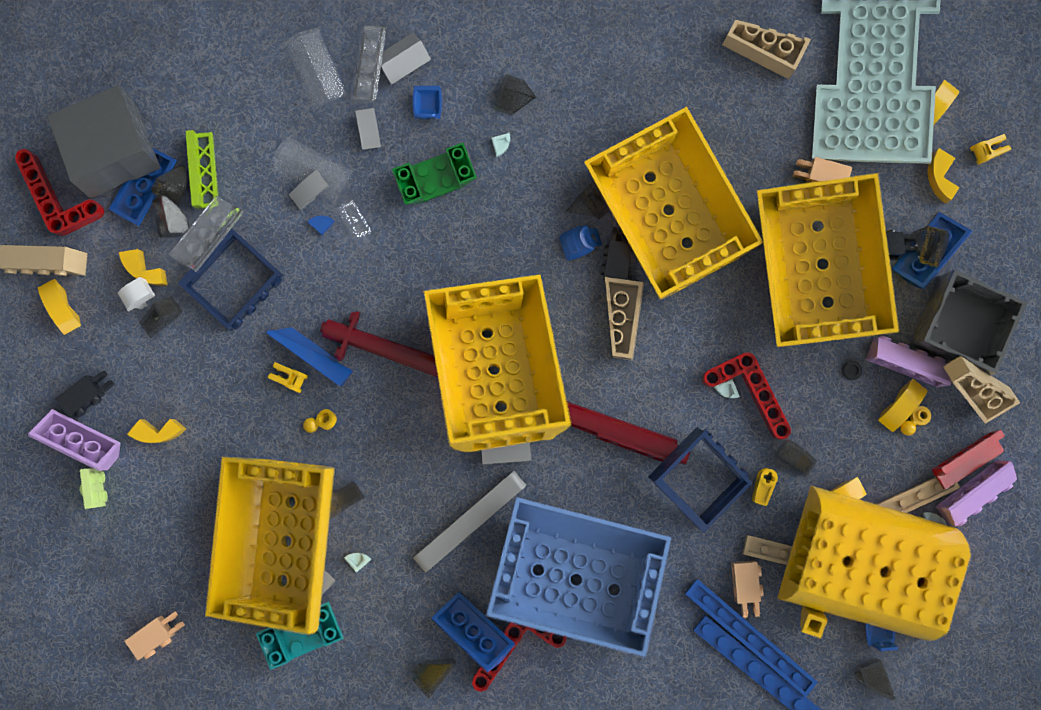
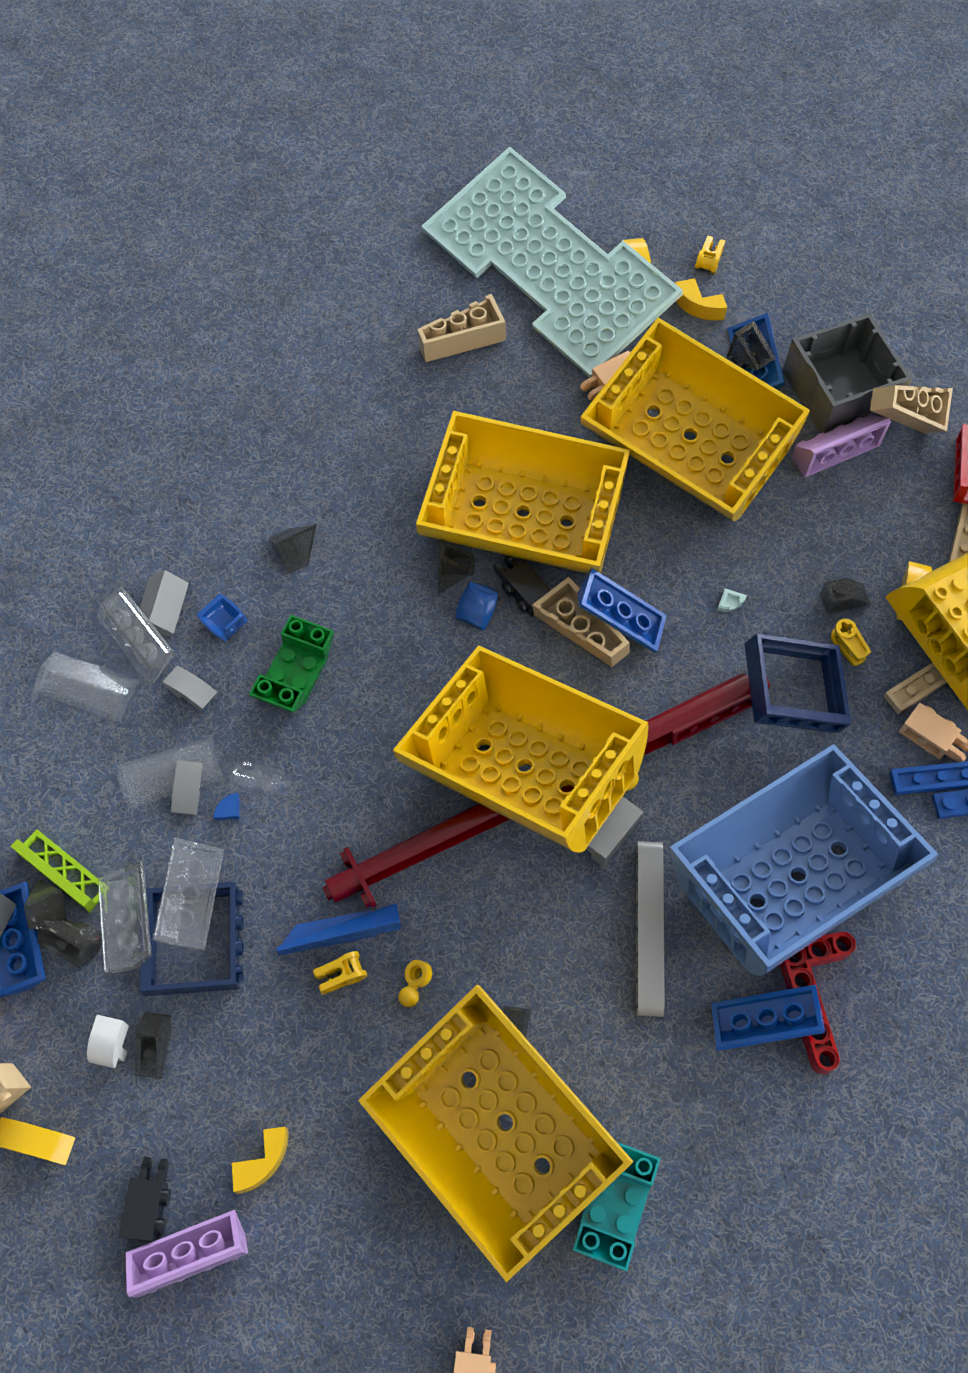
camera: 50 degrees left, 20 degrees down
(92, 488) = (261, 1292): yellowish green plate -> none
(135, 264) = (76, 1022): yellow brick -> none
(247, 256) = (188, 895): none -> clear slope
(357, 560) = (589, 1076): light aqua tile -> none
(432, 674) = (779, 1100): clear smoke slope -> none
(501, 143) = (323, 593): light aqua tile -> none
(650, 334) = (621, 610): none -> blue slope
(754, 389) = (752, 577): red beam -> none
(852, 370) = (805, 493): black tile -> none
(904, 405) = (874, 472): yellow brick -> none
(909, 427) = (895, 477): yellow plate -> none

